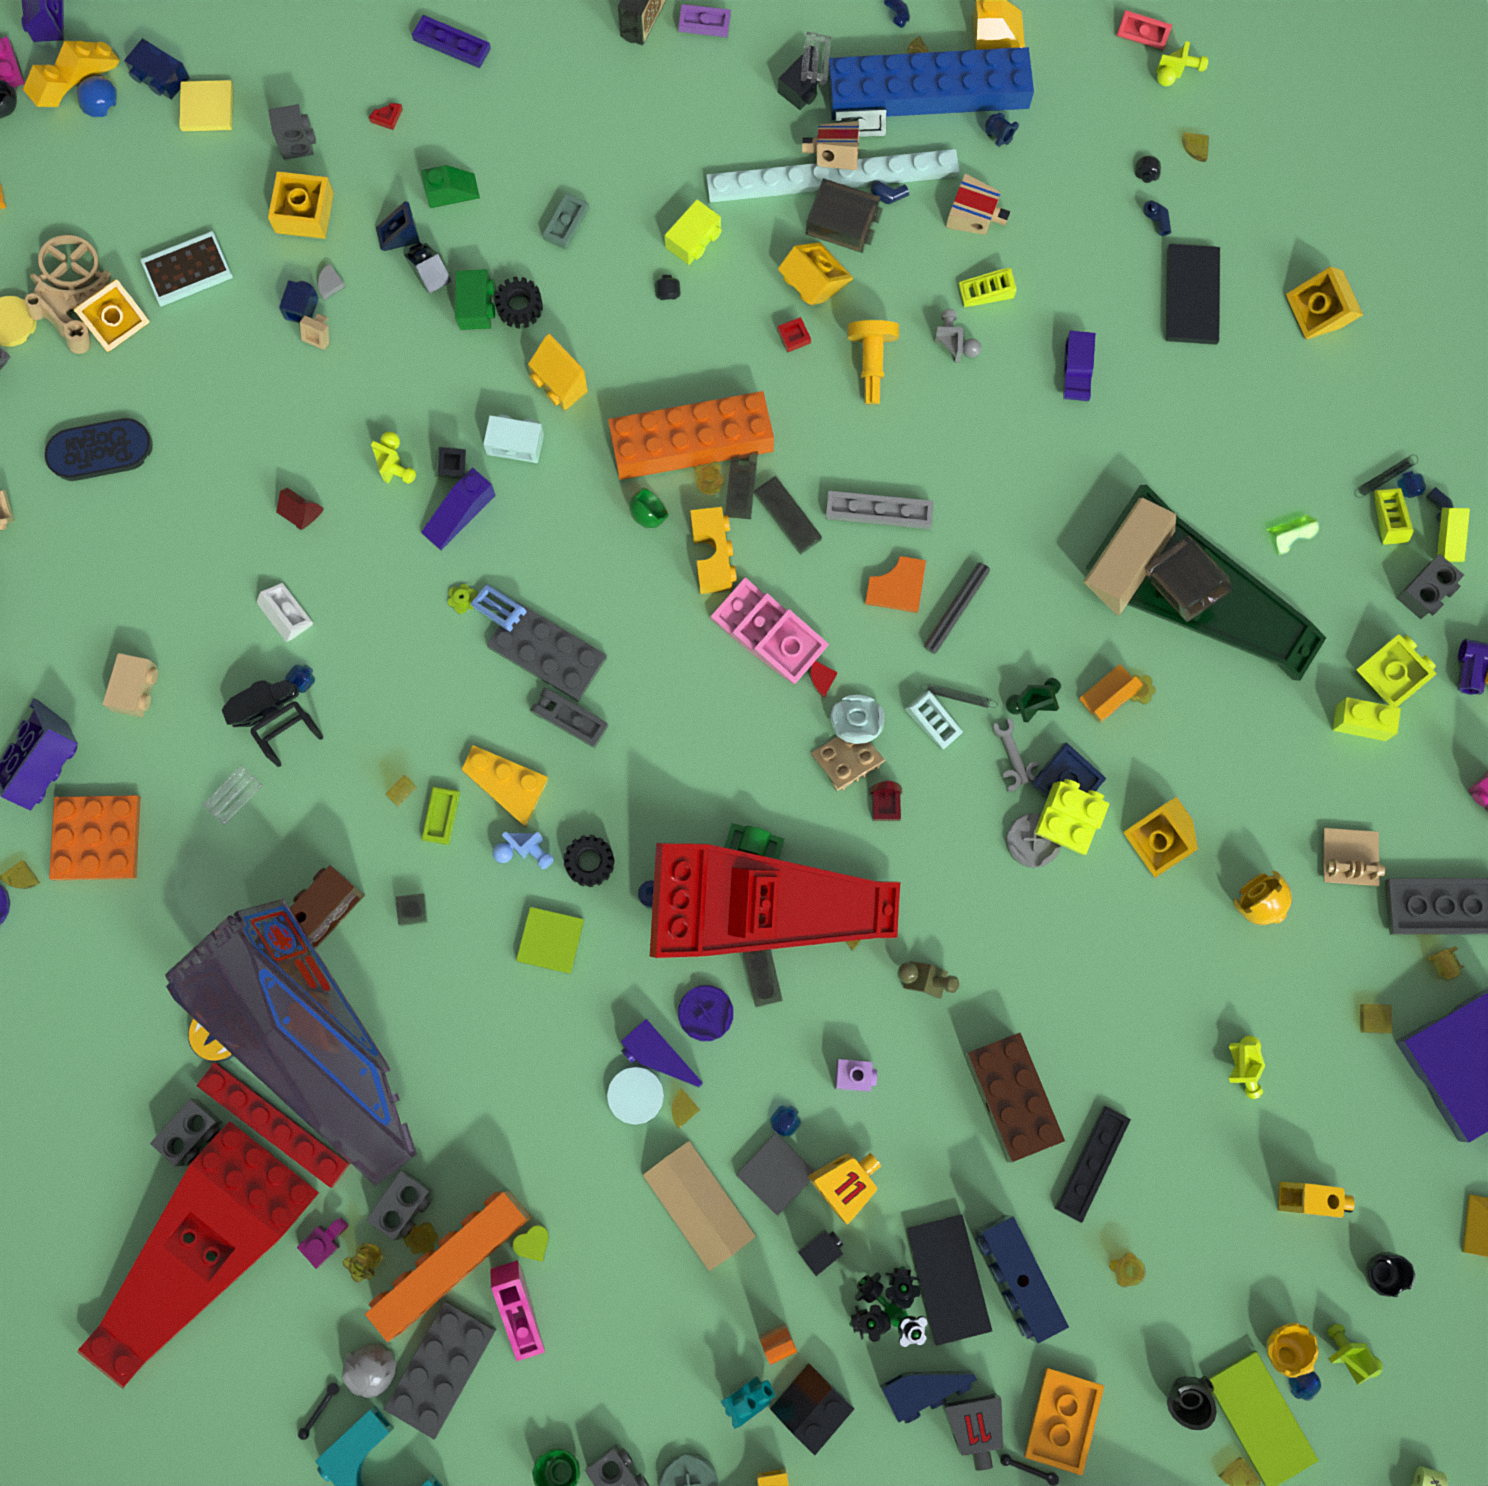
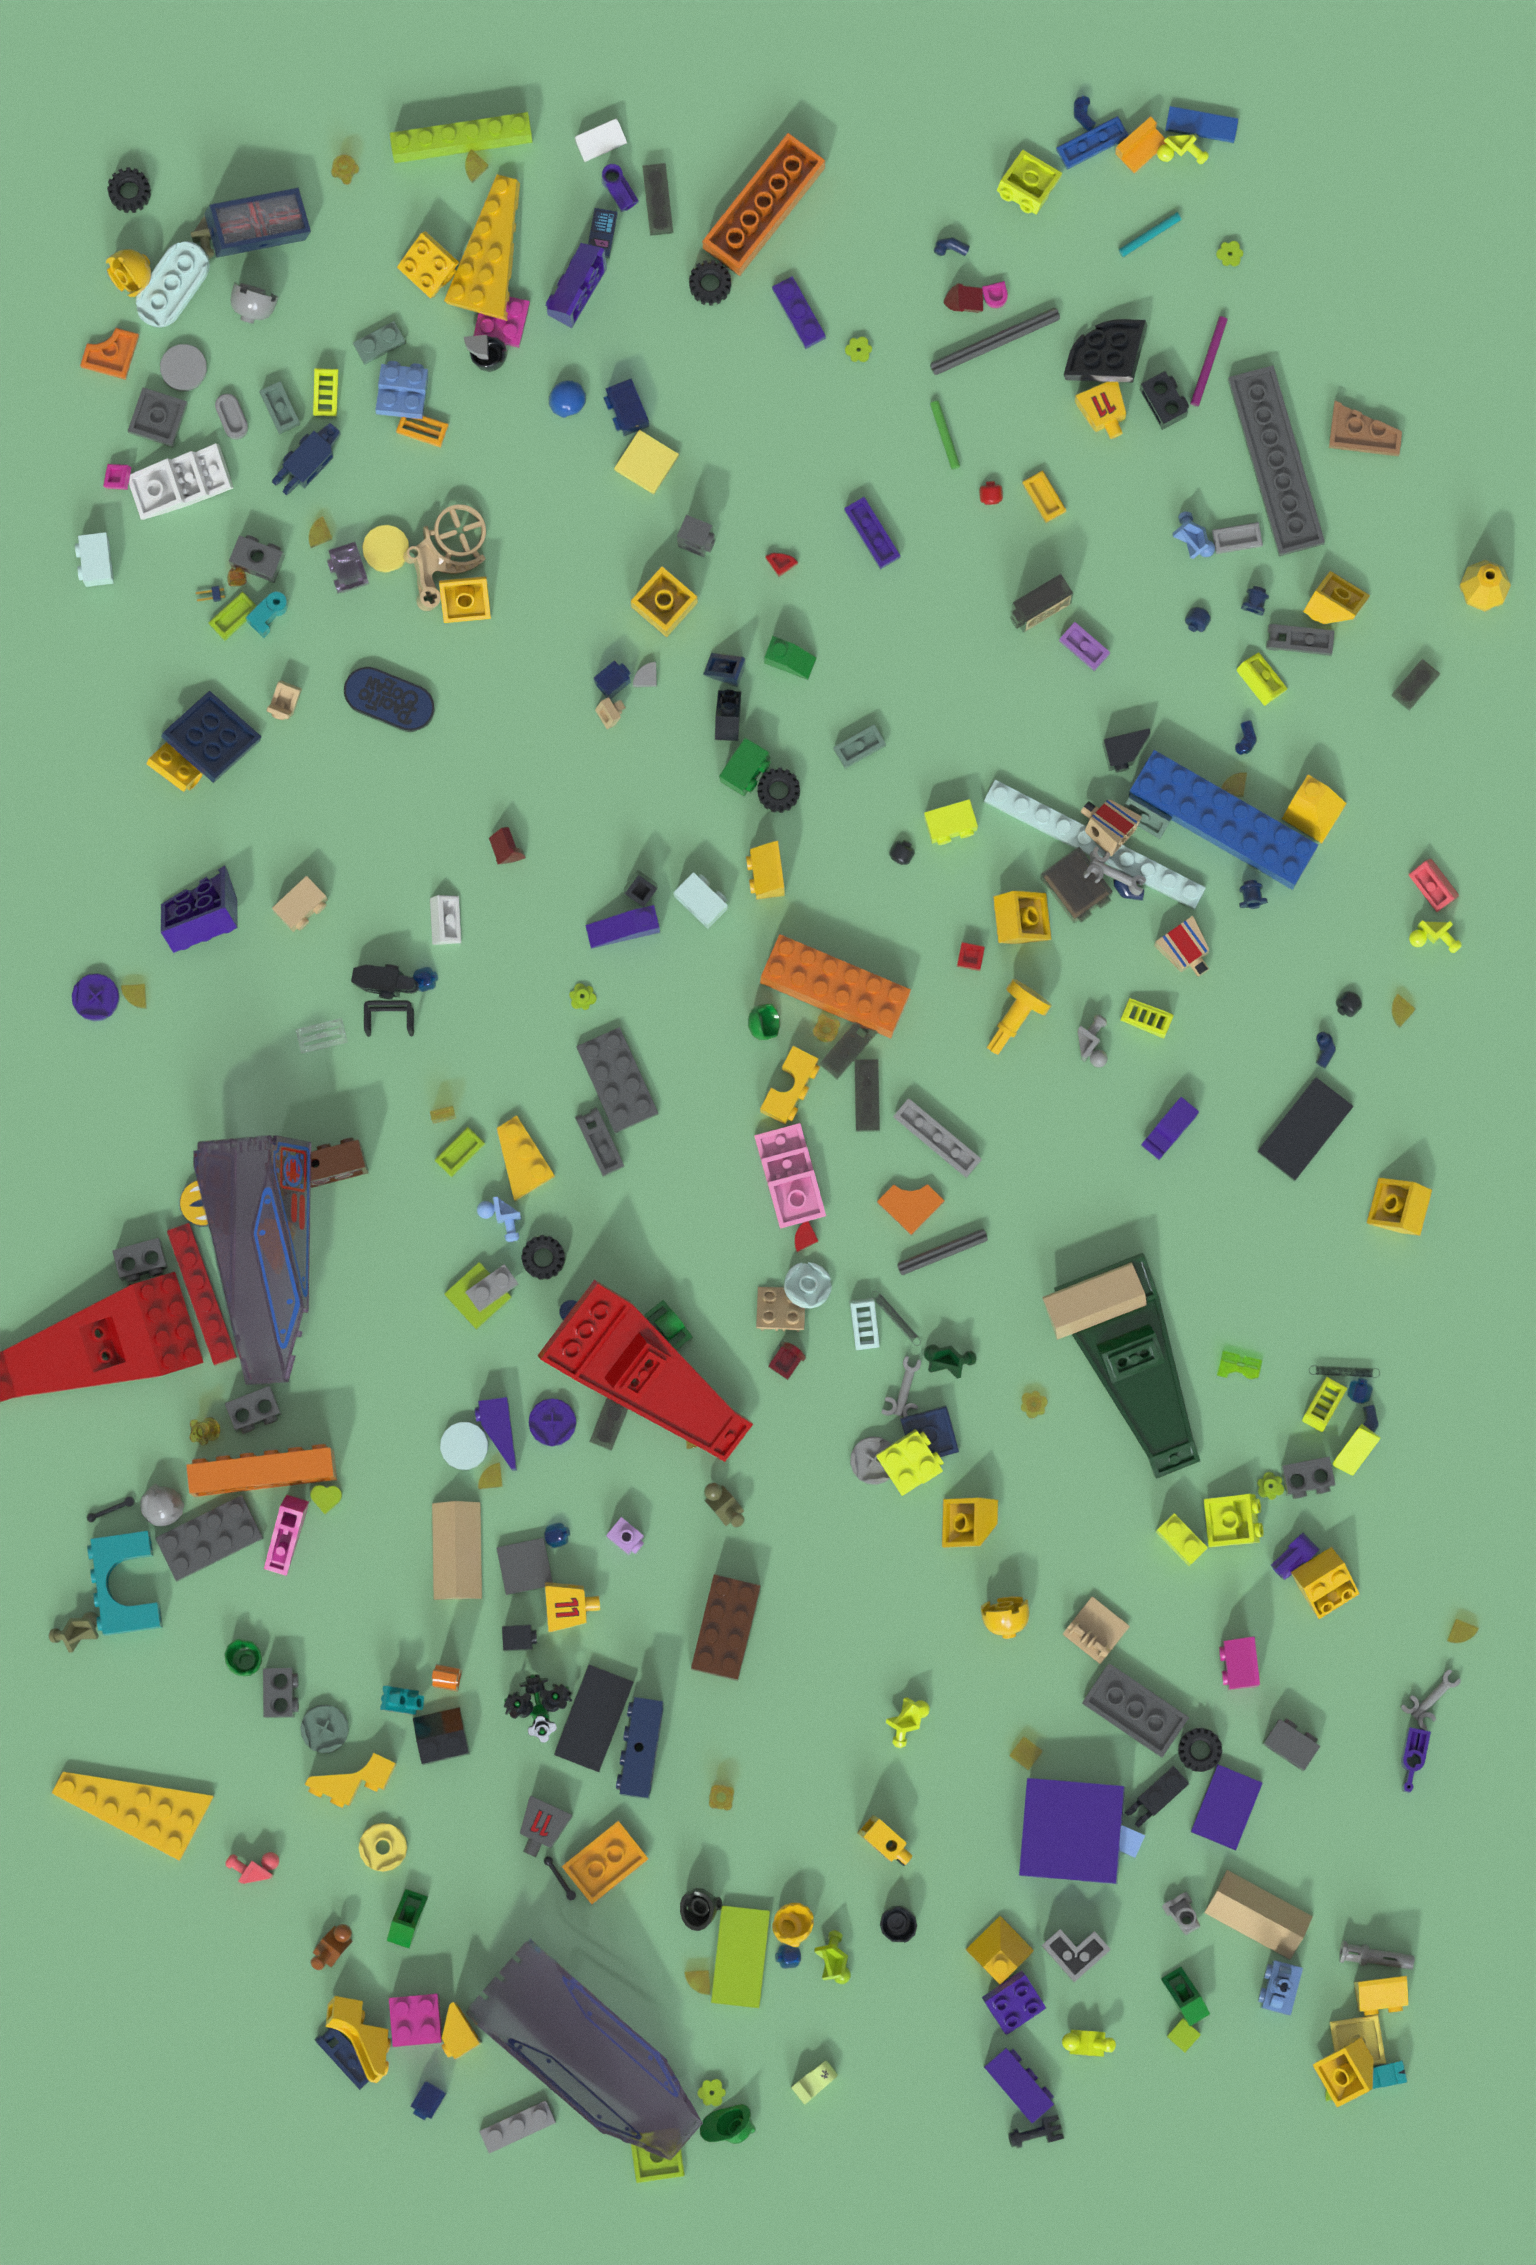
camera: 40 degrees right, 5 degrees up
(74, 63) = (560, 366): yellow arch -> none
(95, 838) = (205, 1001): orange plate -> none
(186, 268) = (545, 592): tile -> none
(321, 1243) = (182, 1399): magenta plate -> none
(388, 459) = (597, 854): neon yellow piece -> none
(411, 909) = (394, 1207): clear smoke plate -> none
(424, 1244) = (253, 1447): clear yellow plant -> none
(511, 617) = (608, 1039): light blue tile -> none
(559, 923) = (492, 1288): none -> light grey plate
(813, 75) = (1130, 757): clear tile -> none
(858, 184) = (1099, 869): none -> light grey bar
(918, 1390) = (518, 1773): dark blue slope -> none
(1092, 1164) = (750, 1712): black tile -> none
(1110, 693) = (1007, 1392): light orange panel -> none
(1188, 578) = (1118, 1347): clear smoke brick -> none
(1394, 620) = (1264, 1490): none -> lime plant
(1446, 963) = (1104, 1750): clear yellow brick -> none

